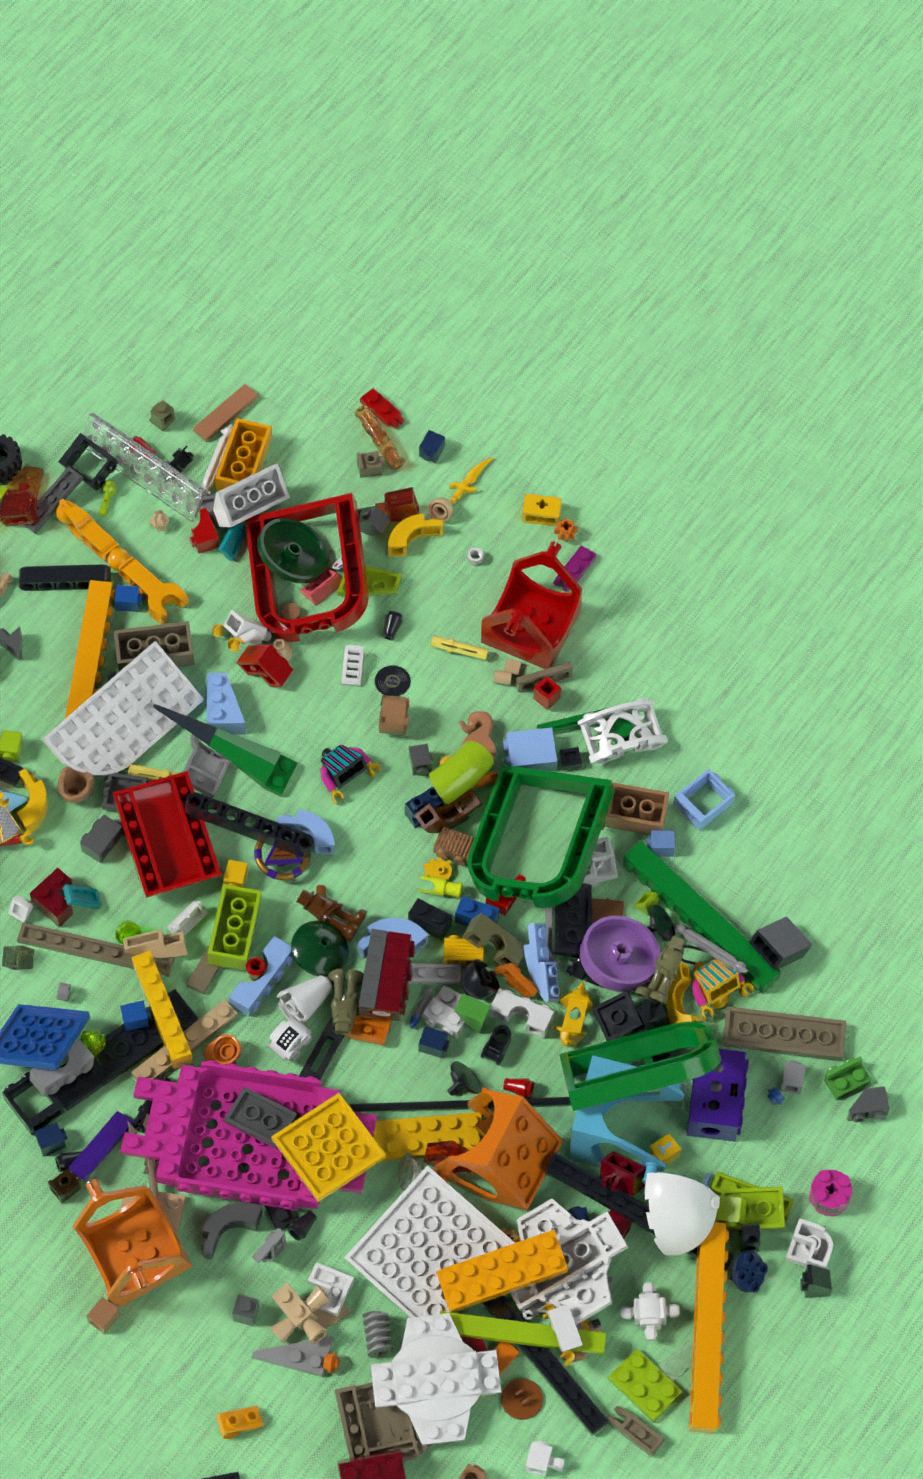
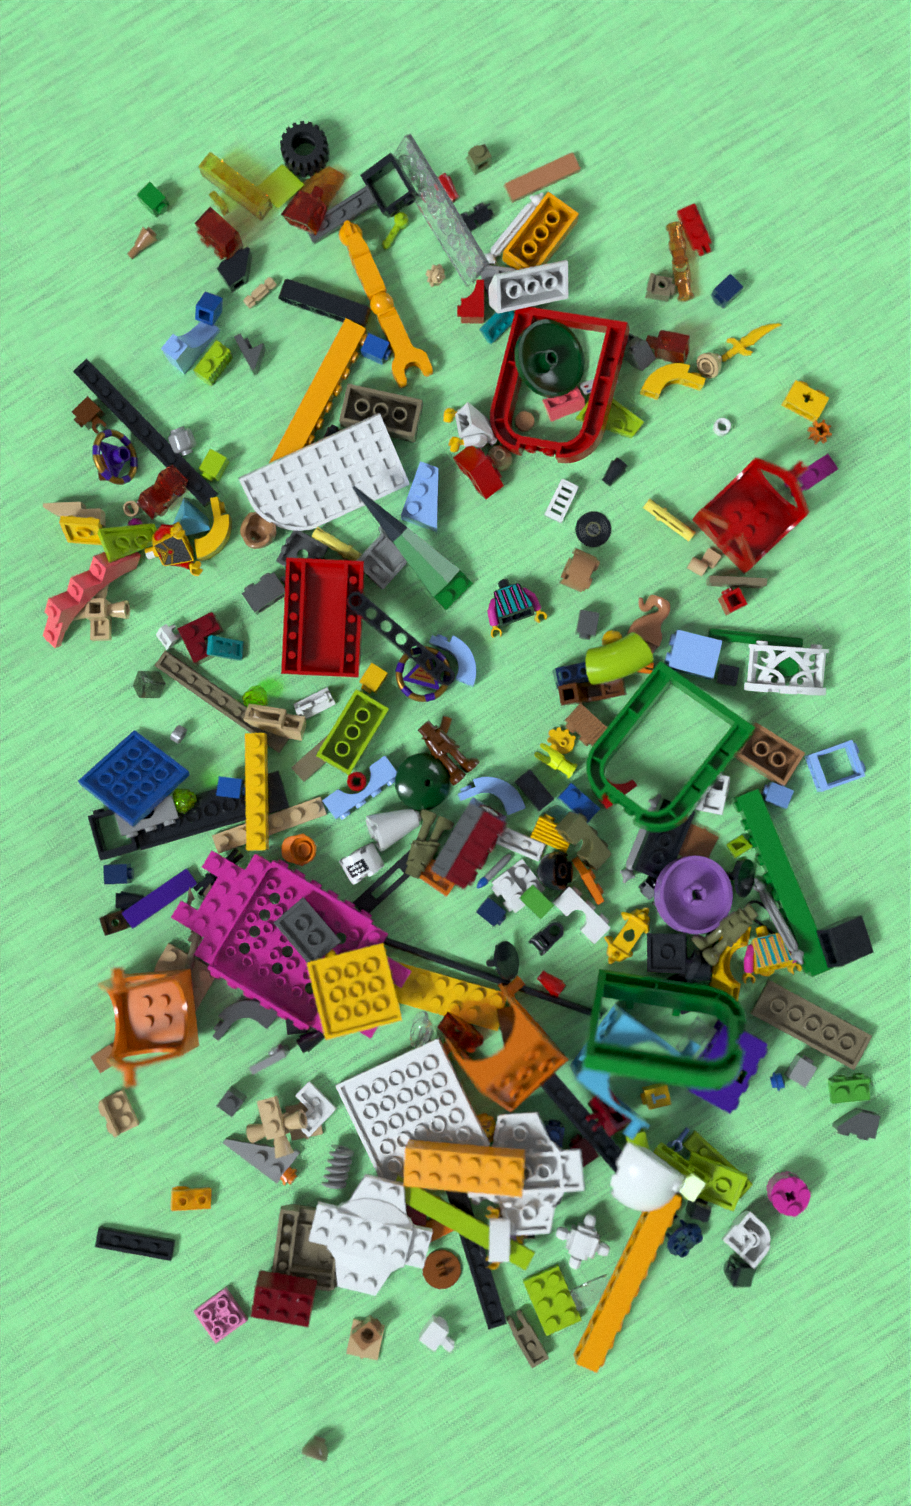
camera: 25 degrees right, 25 degrees up
(134, 1367) = (118, 1113): none -> tan bracket
(537, 958) = (616, 882): light blue slope -> none

